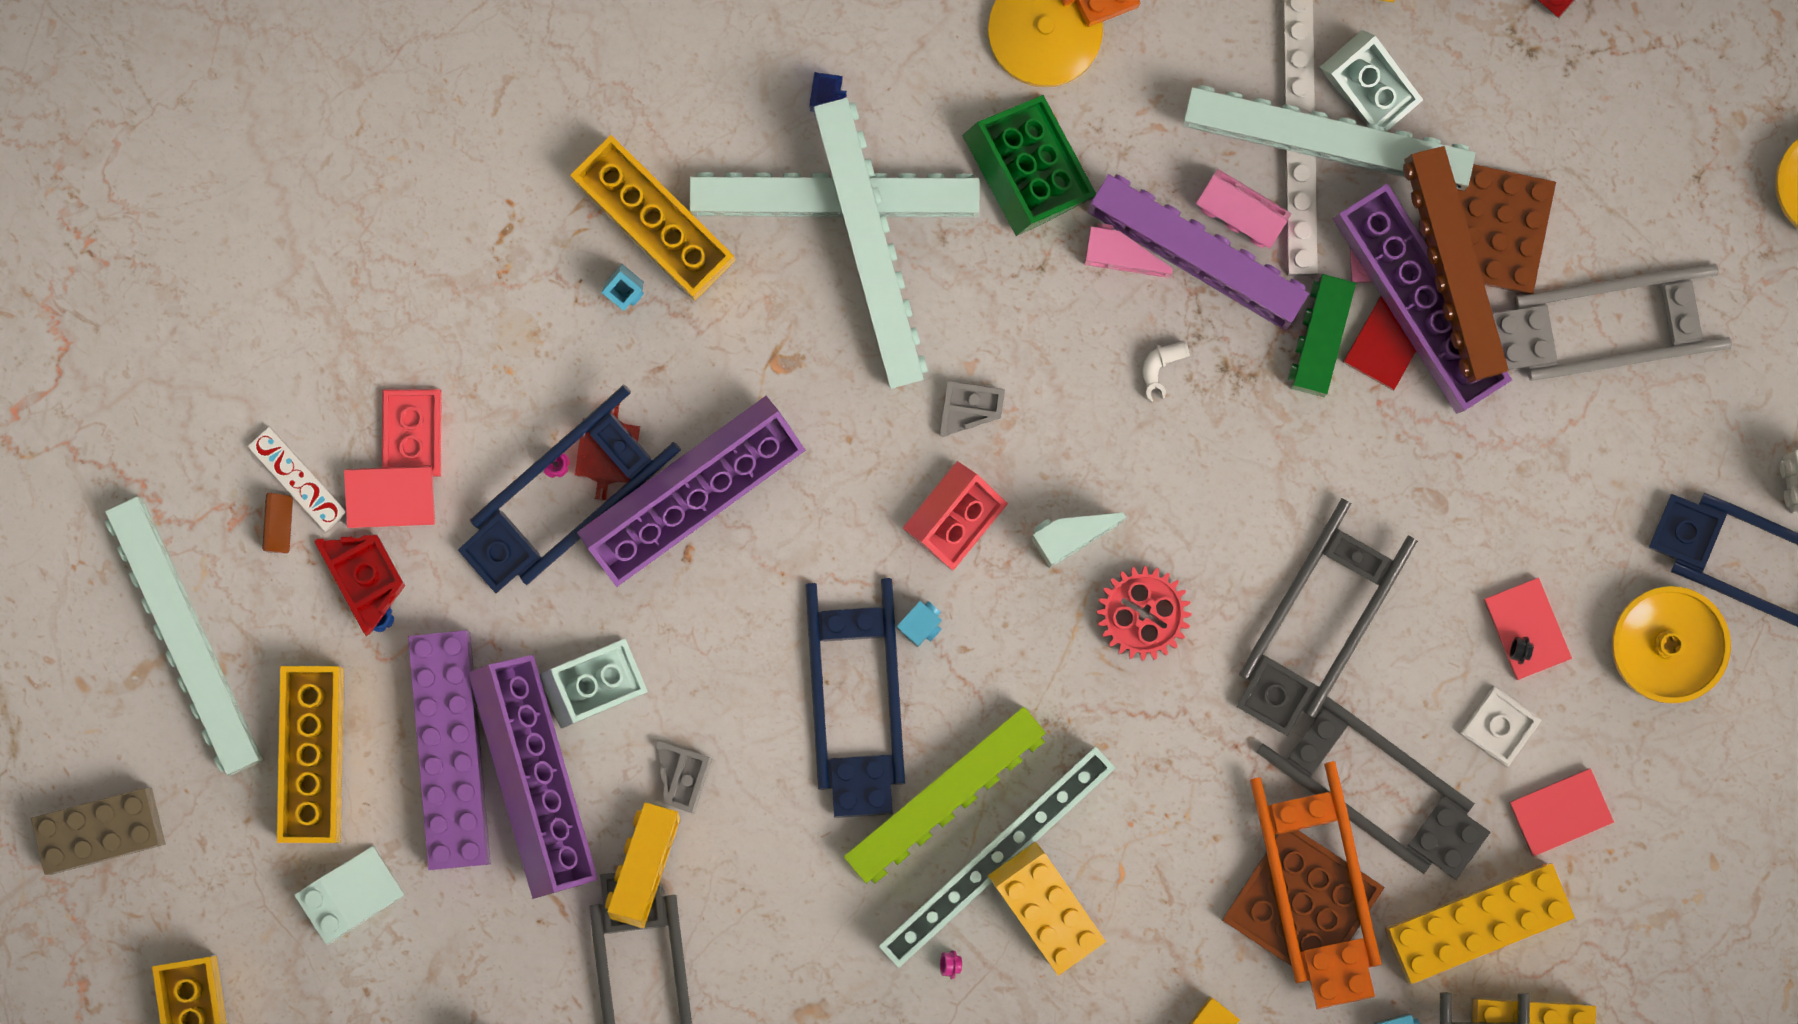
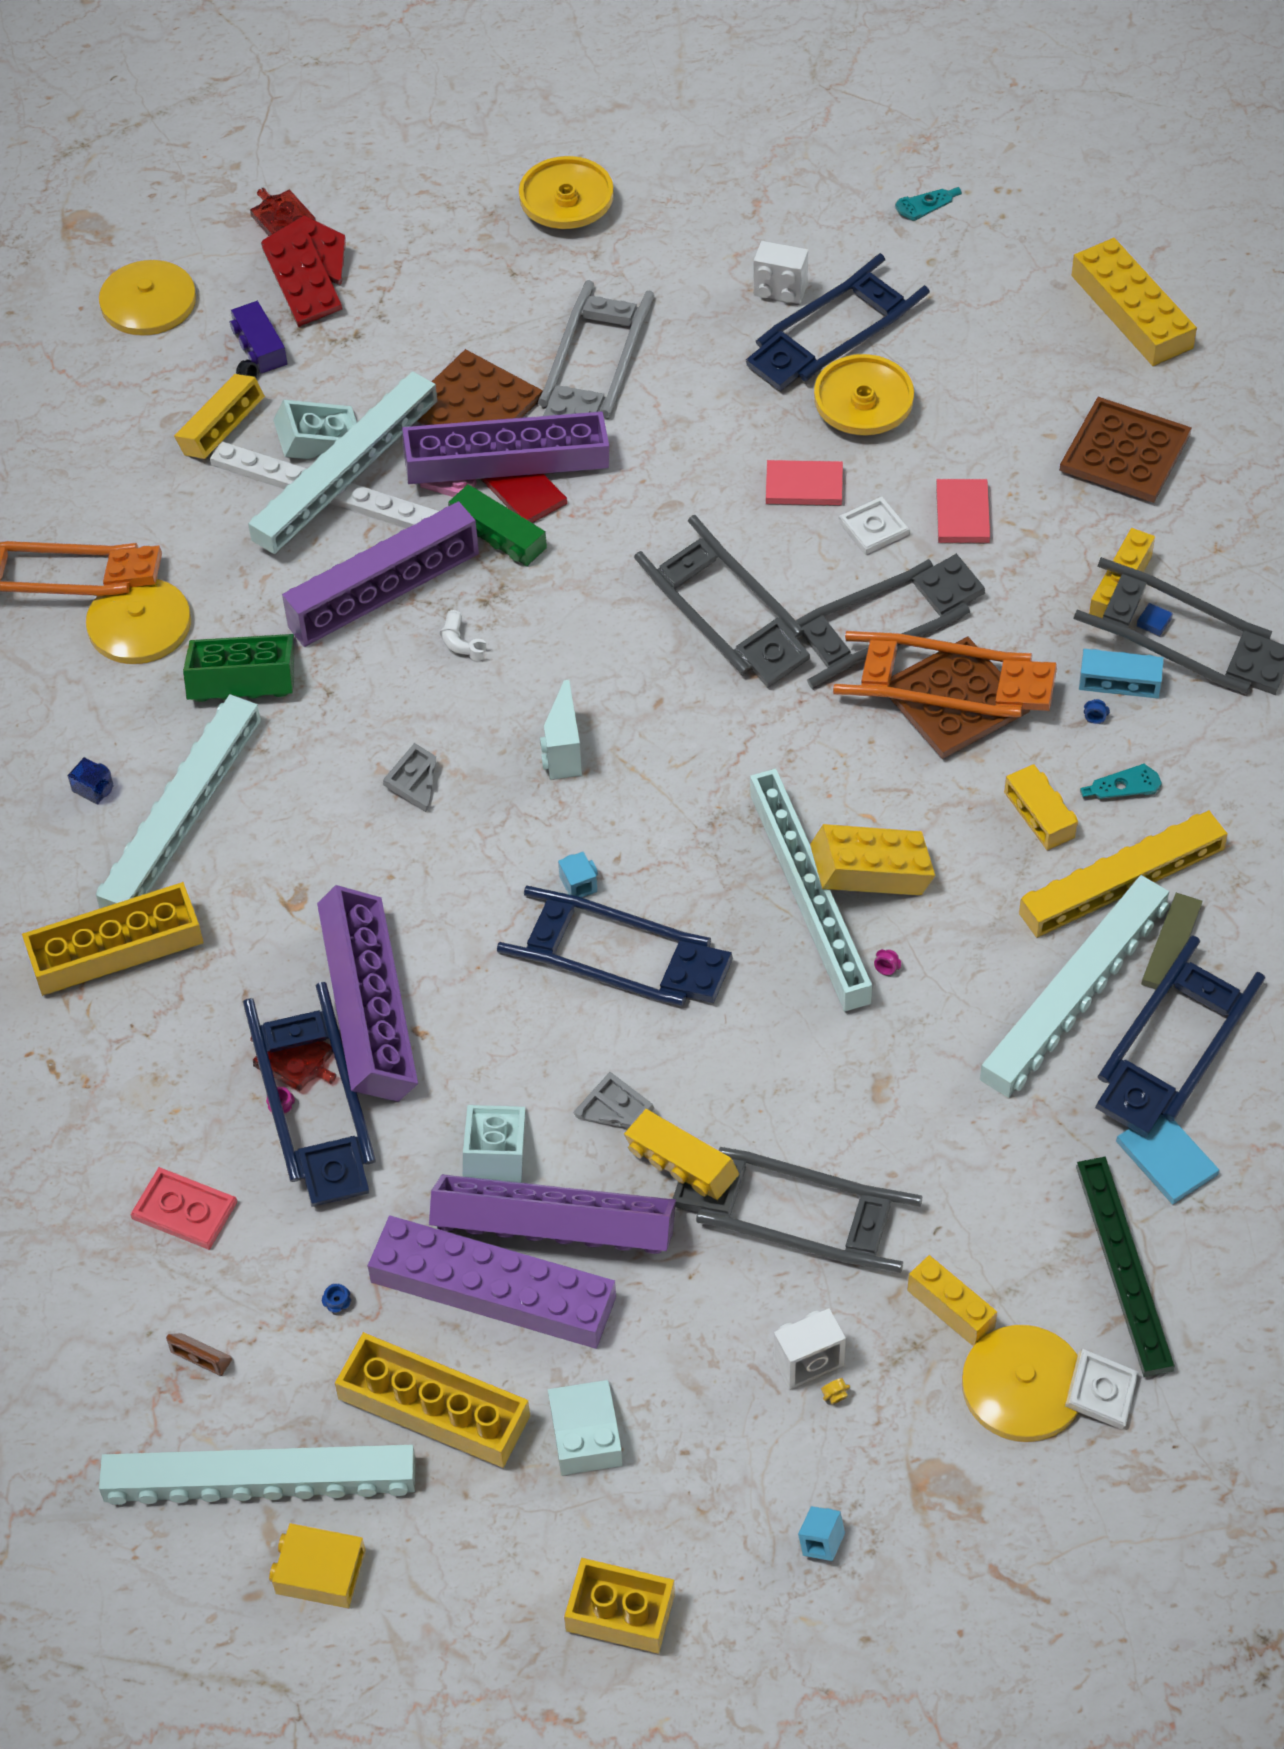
camera: 65 degrees left, 30 degrees down
(98, 831) = (404, 1629): dark tan brick -> none
(123, 729) = (317, 1565): none -> yellow brick
(297, 479) = (168, 1319): white tile -> none
(363, 576) = (289, 1292): red wing -> none
(389, 496) = (230, 1244): coral tile -> none
(623, 287) = (157, 982): medium azure brick -> none
(869, 242) = (234, 783): light aqua brick -> none
(944, 795) = (737, 912): lime brick -> none
(955, 515) = (498, 817): coral slope -> none
(1117, 251) = (350, 629): bright pink slope -> none
(1130, 636) = (655, 718): coral gear -> none
(1243, 209) = (363, 534): bright pink brick -> none
(1455, 264) = (492, 404): dark orange brick -> none
(1479, 923) = (1028, 585): yellow brick -> none
(1521, 649) = (818, 484): black plate -> none
(1722, 954) = (1125, 449): none -> dark orange plate

